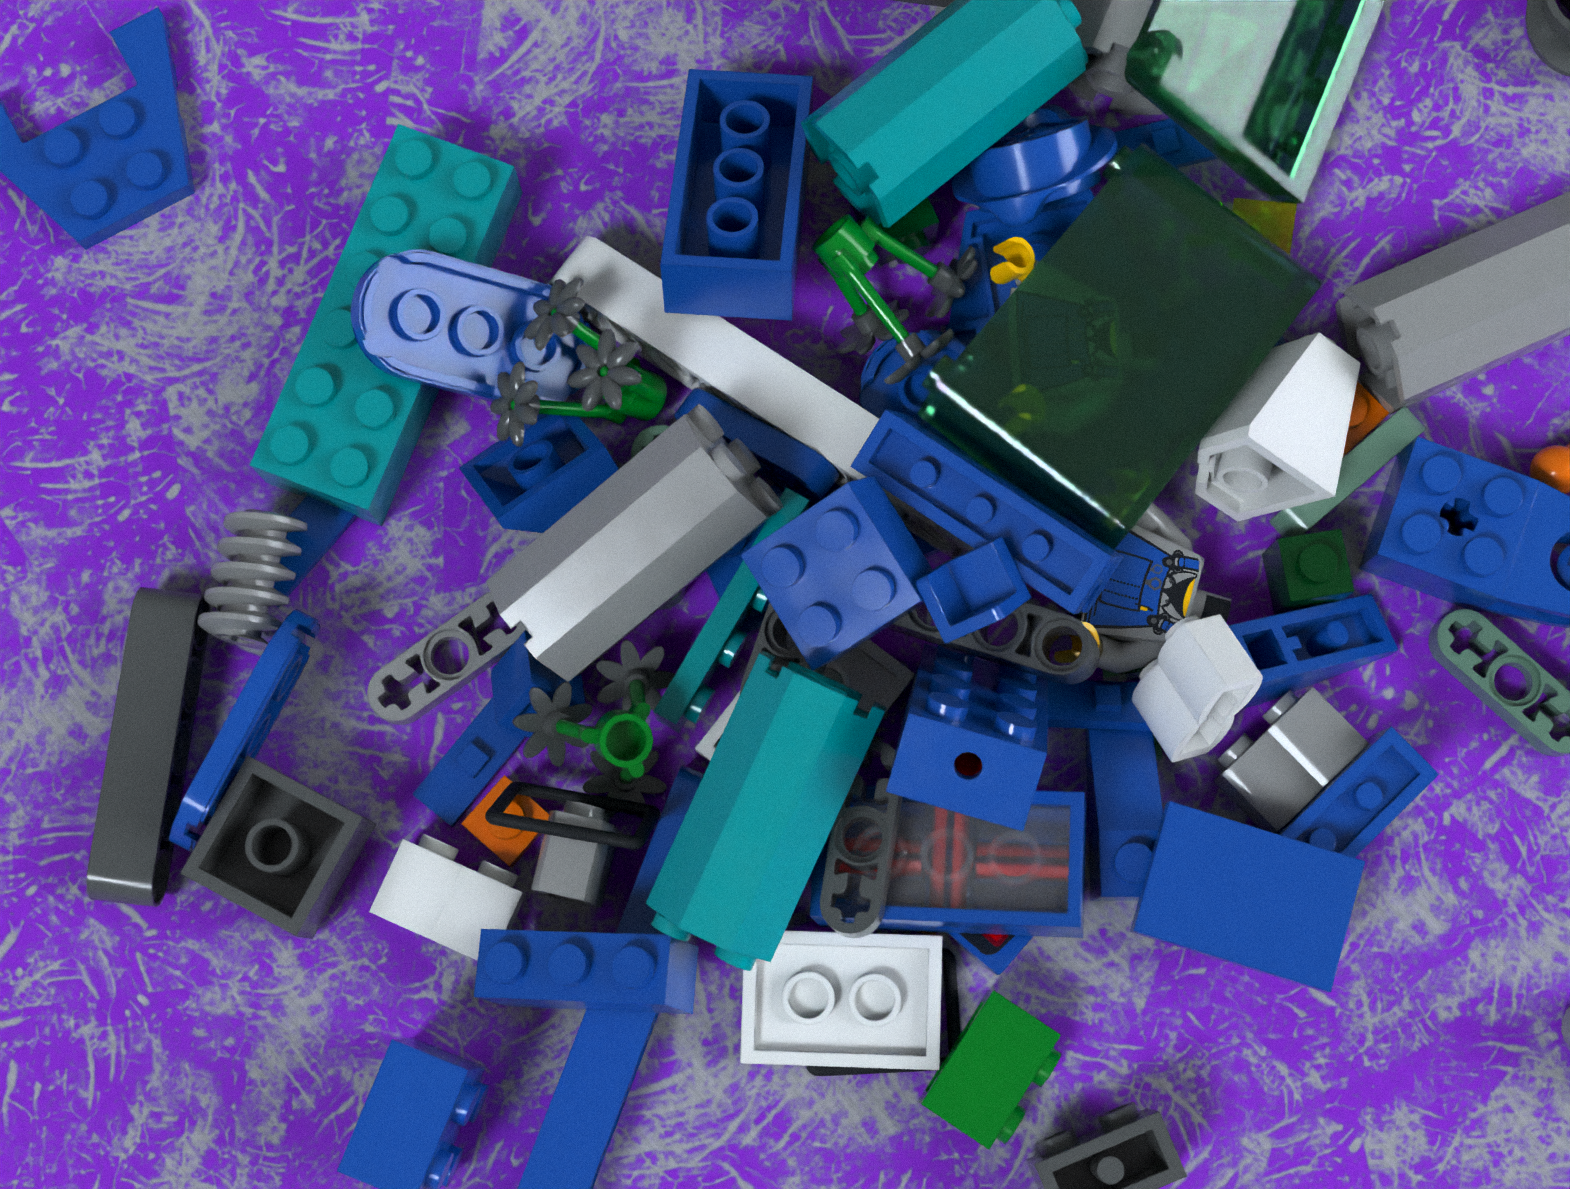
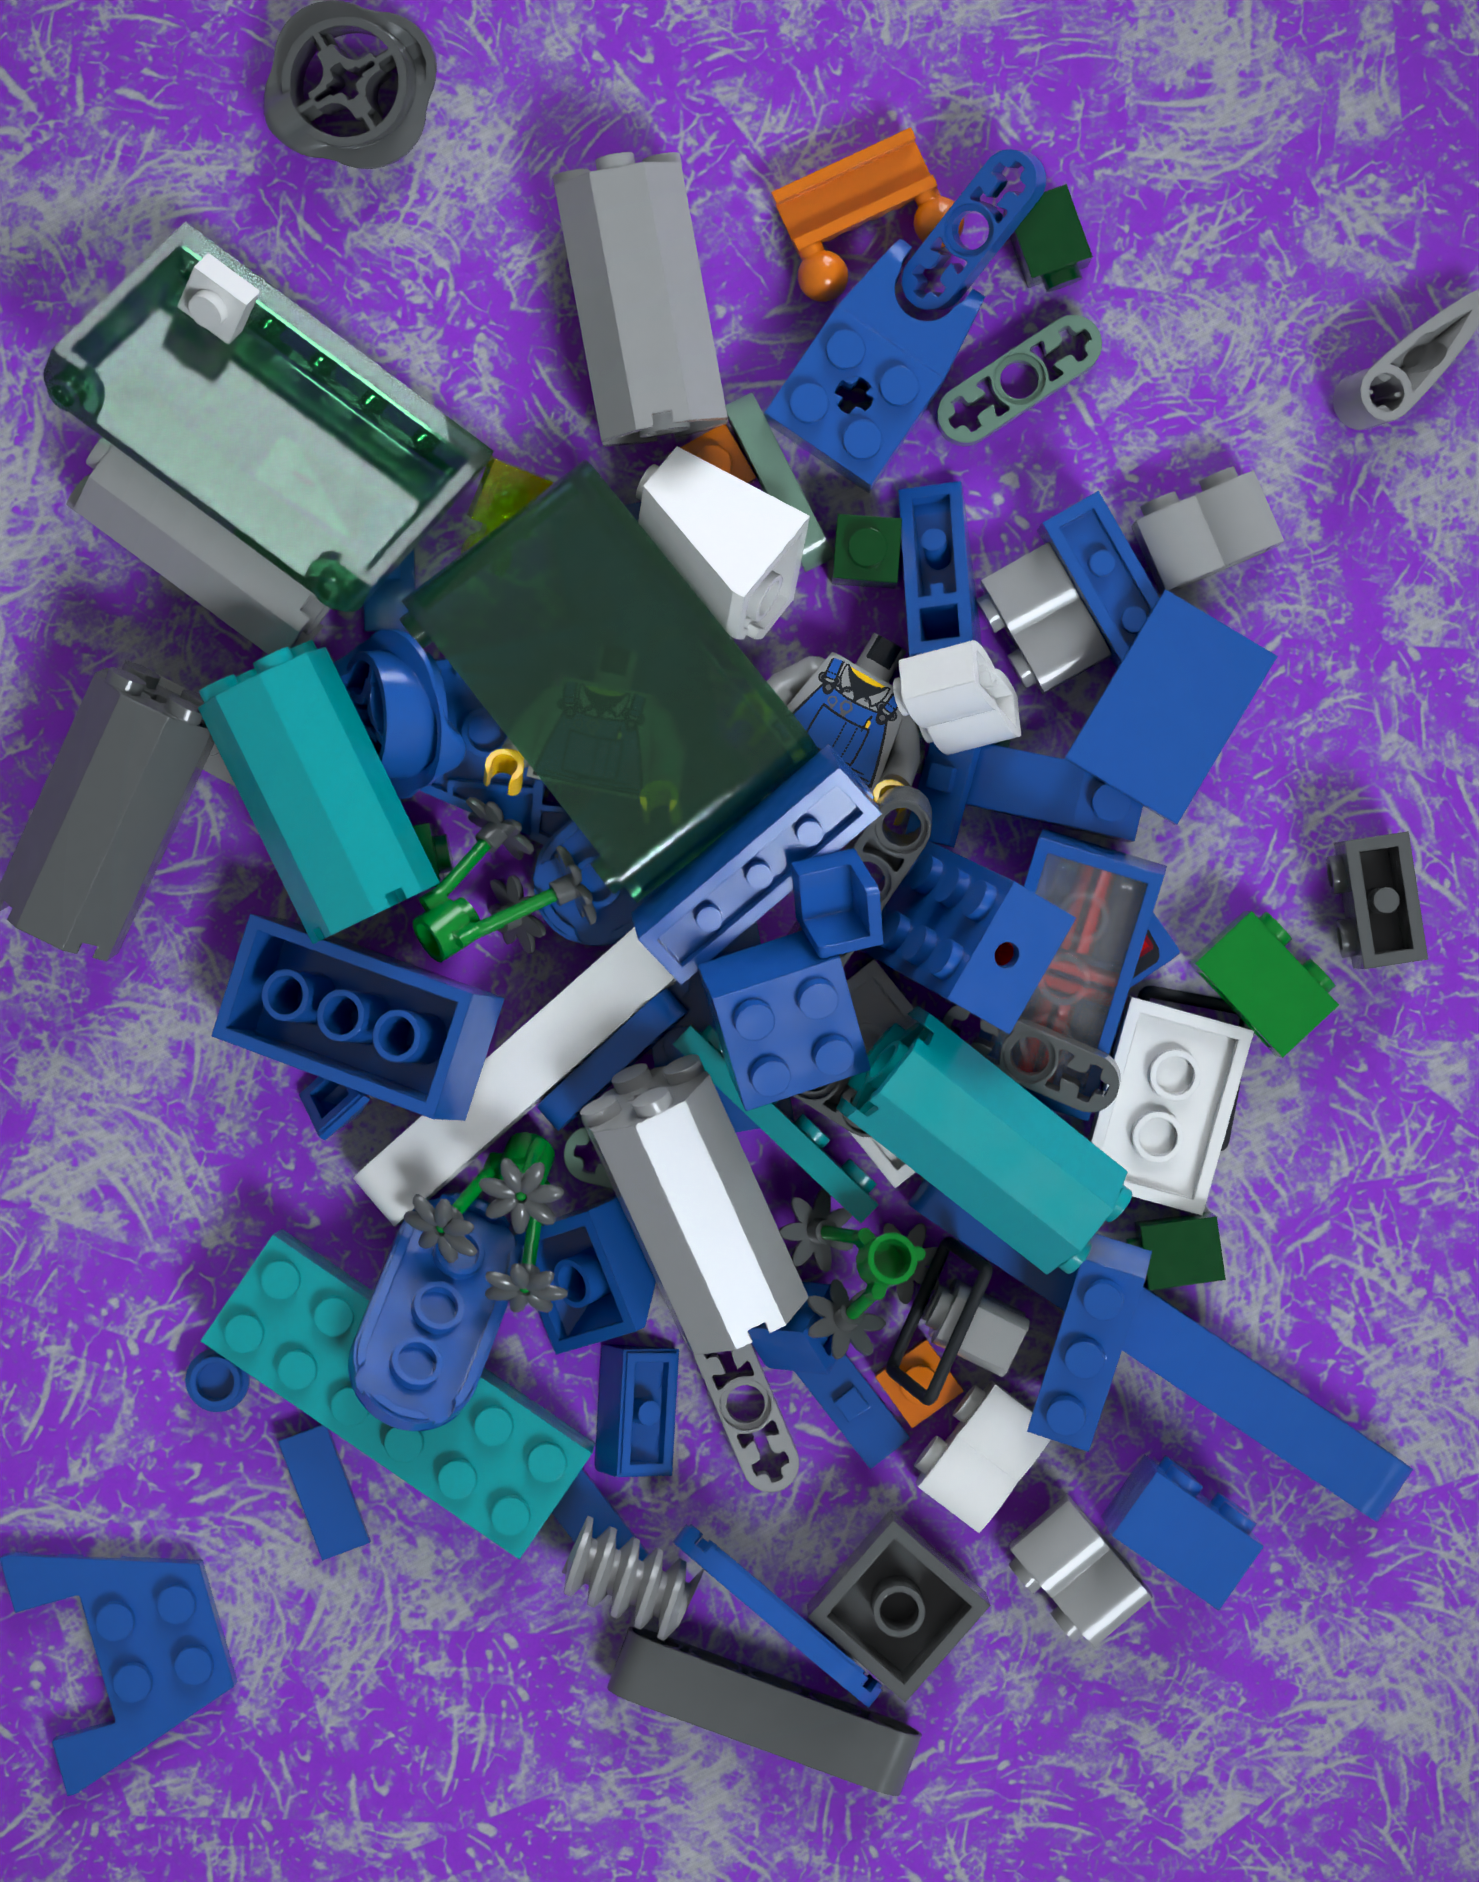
camera: 70 degrees left, 10 degrees up
(279, 284) = (324, 1491): none -> blue piece
(350, 1026) = (1078, 1571): none -> light grey brick
(360, 160) = (215, 1382): none -> blue plate
(420, 557) = (636, 1411): none -> blue slope
(646, 205) = (331, 1105): none -> blue slope
(698, 1048) = (1182, 1248): none -> dark green brick
(1422, 901) = (1206, 531): none -> light grey brick

